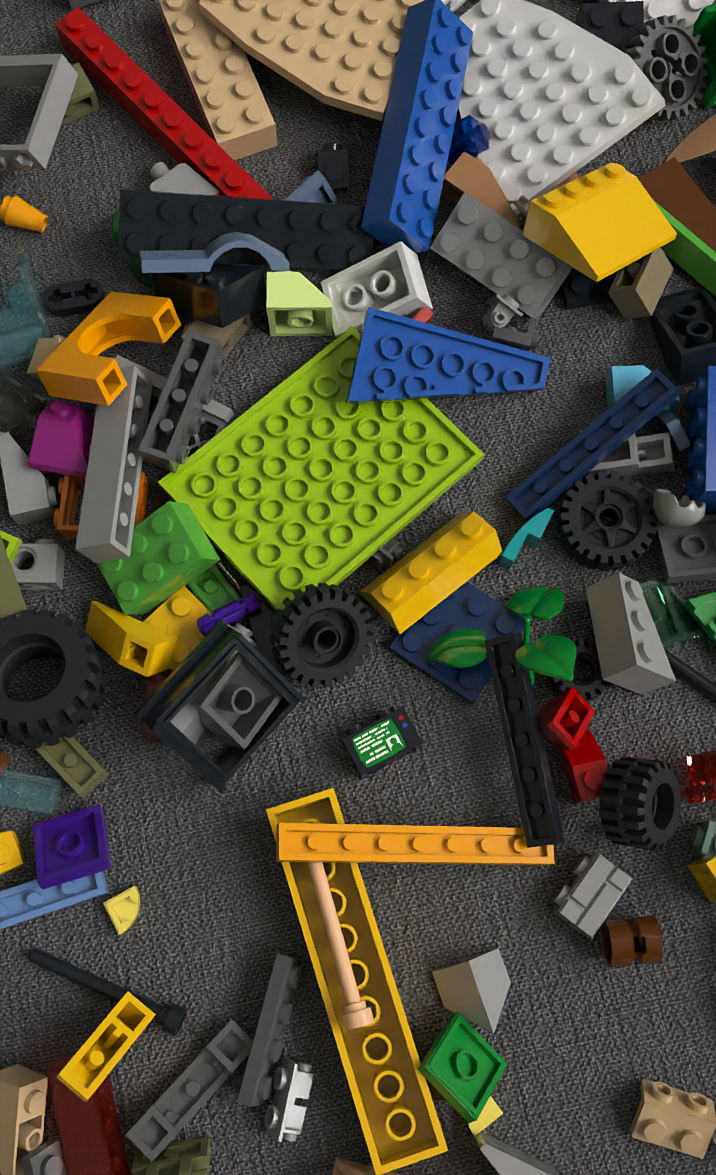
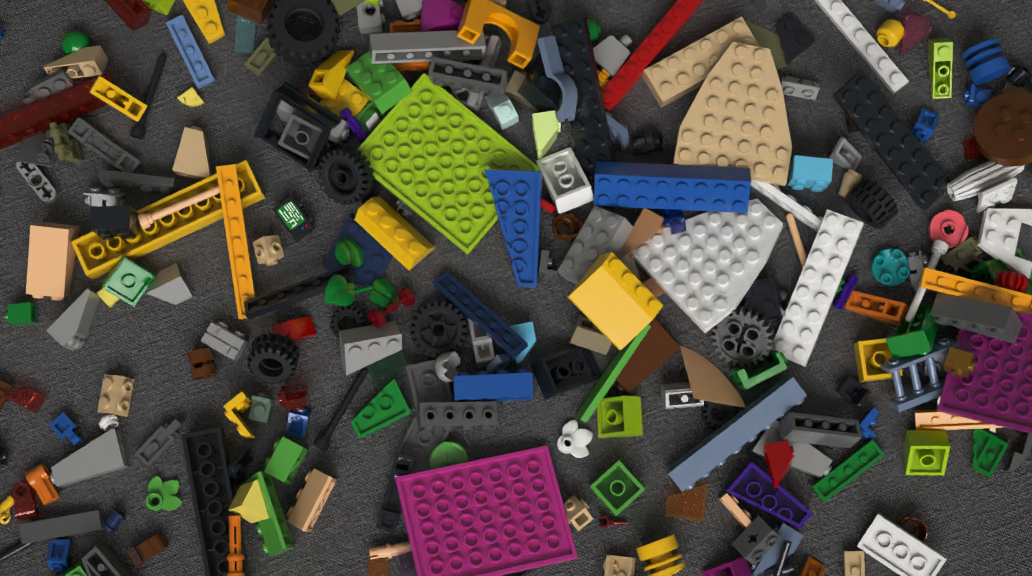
camera: 85 degrees right, 5 degrees up
(71, 846) = (218, 64): dark purple plate -> none
(236, 914) = (193, 155): none -> tan slope
(244, 371) = (503, 110): none -> light aqua slope
(357, 1083) = (115, 222): none -> black brick
(435, 793) = (268, 250): none -> tan brick
(456, 298) = (566, 226): none -> reddish brown hair
(501, 312) = (556, 253): light grey hinge -> none
(528, 534) = (426, 288): teal slope -> none
(545, 568) = (377, 317): none -> dark red wheel
(565, 719) = (314, 313): red slope -> none

